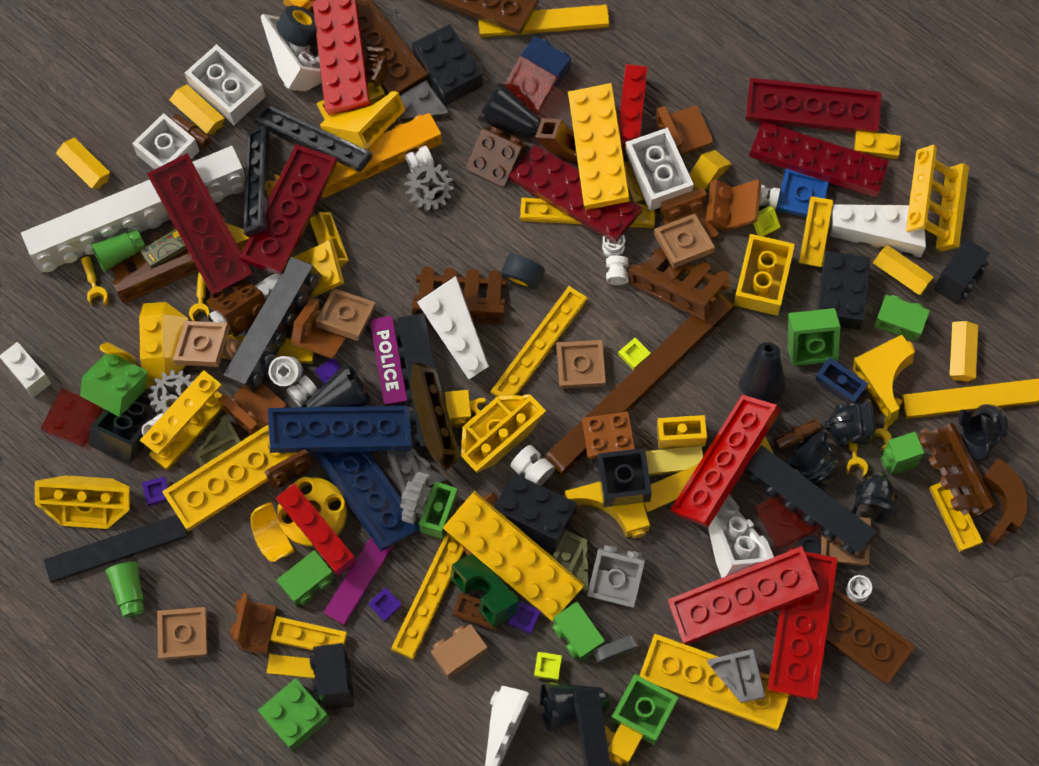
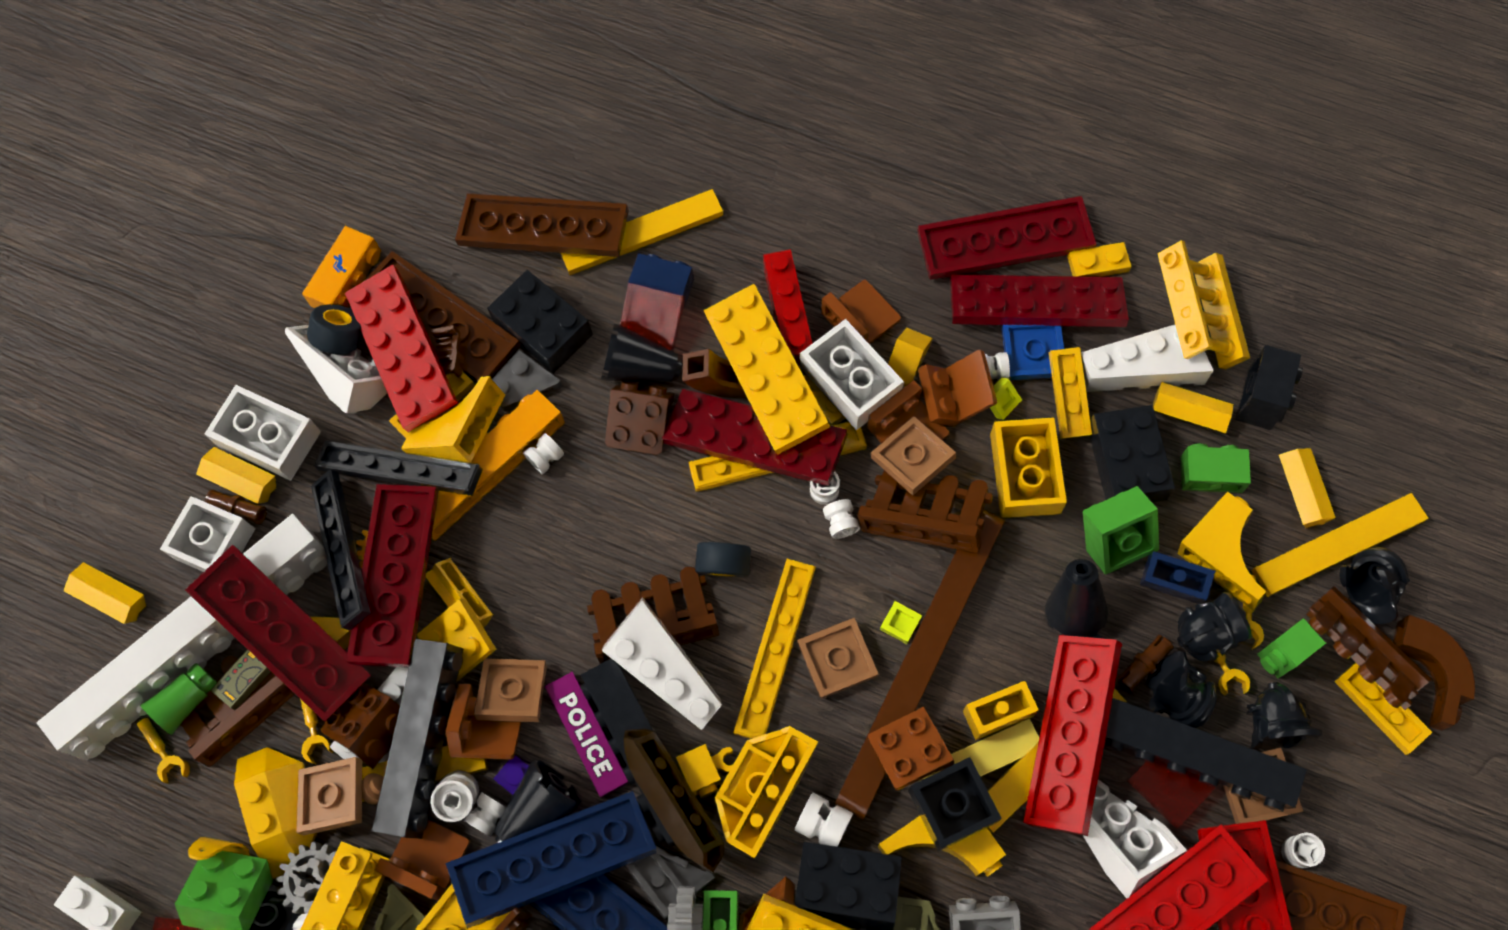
camera: 15 degrees left, 0 degrees up
(428, 195) = (568, 496): light grey gear -> none
(810, 544) = (1215, 811): black tile -> none

